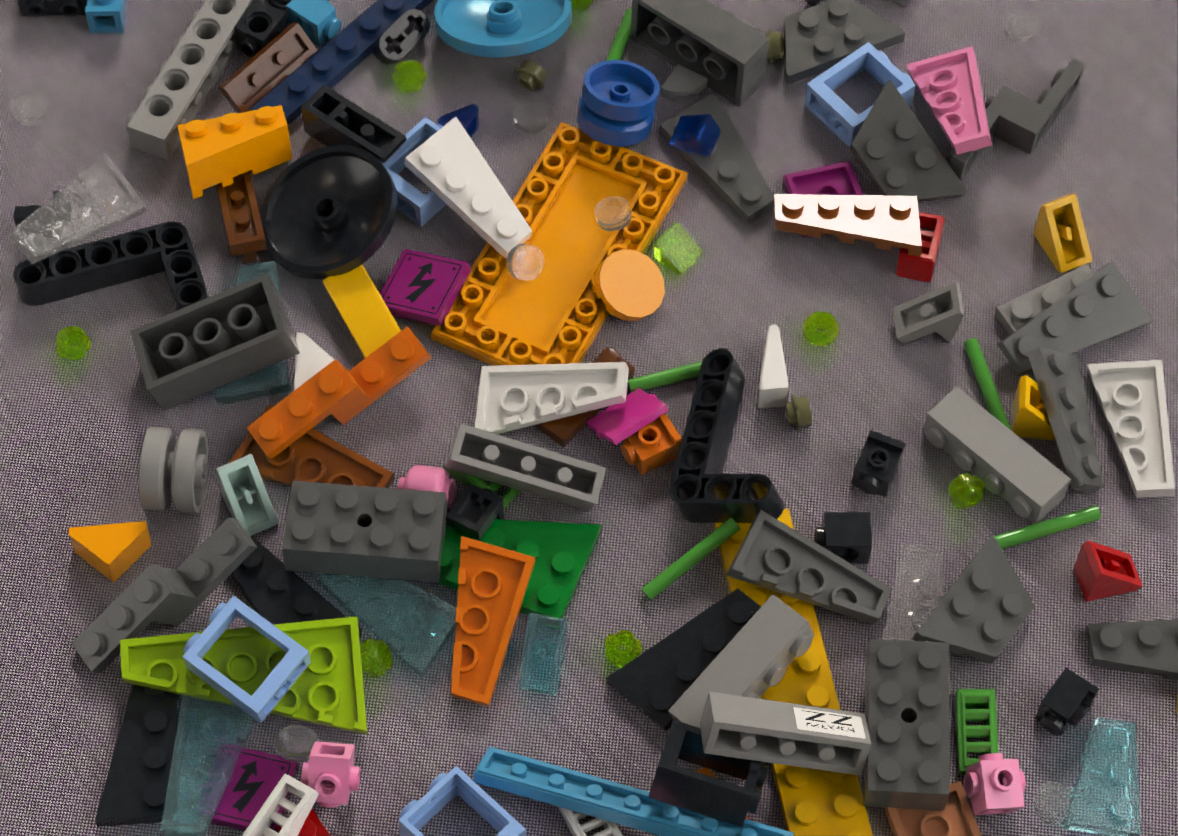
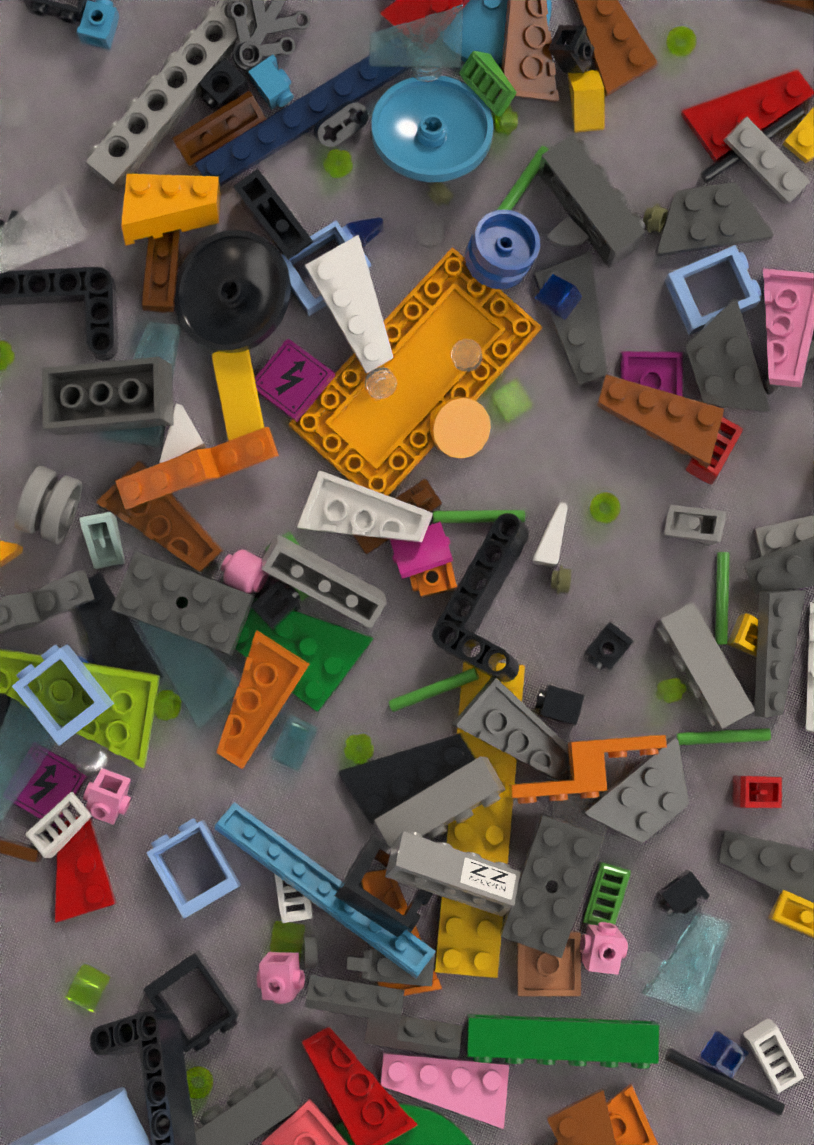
camera: 15 degrees right, 25 degrees up
(900, 585) = (587, 768): none -> orange bracket

